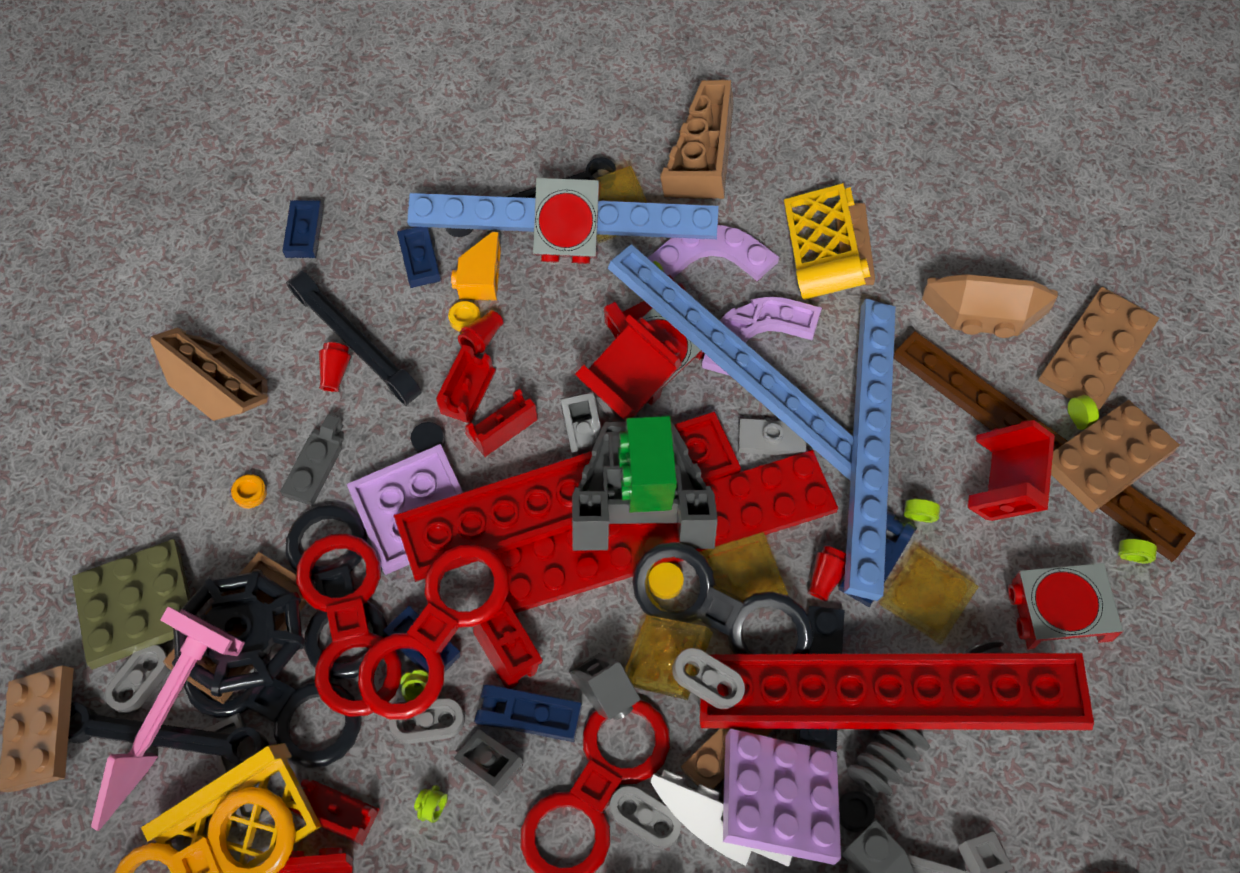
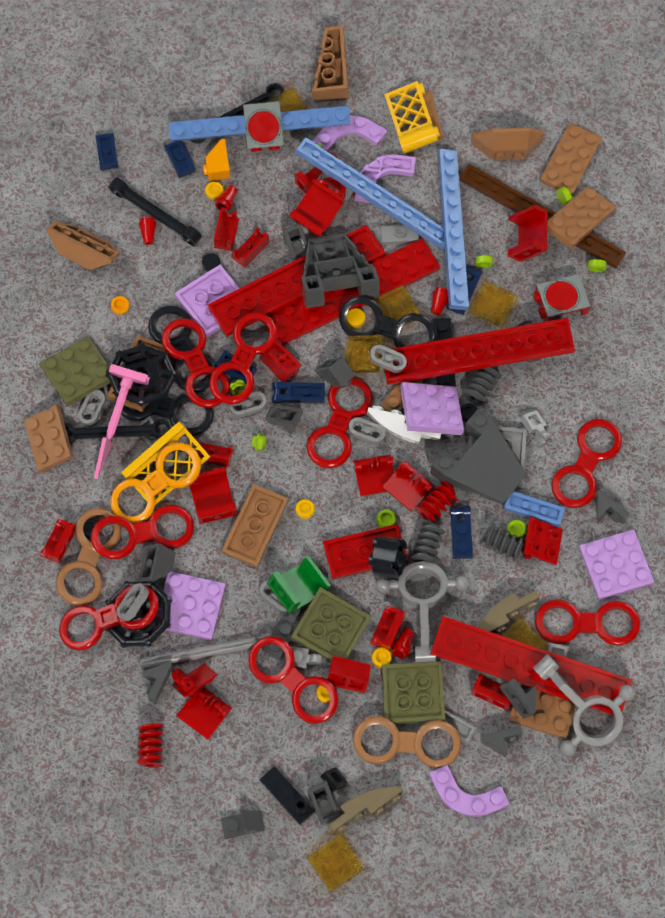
camera: 15 degrees left, 5 degrees up
(314, 462) = (152, 284): dark grey hinge -> none
(647, 464) = (339, 257): green brick -> none

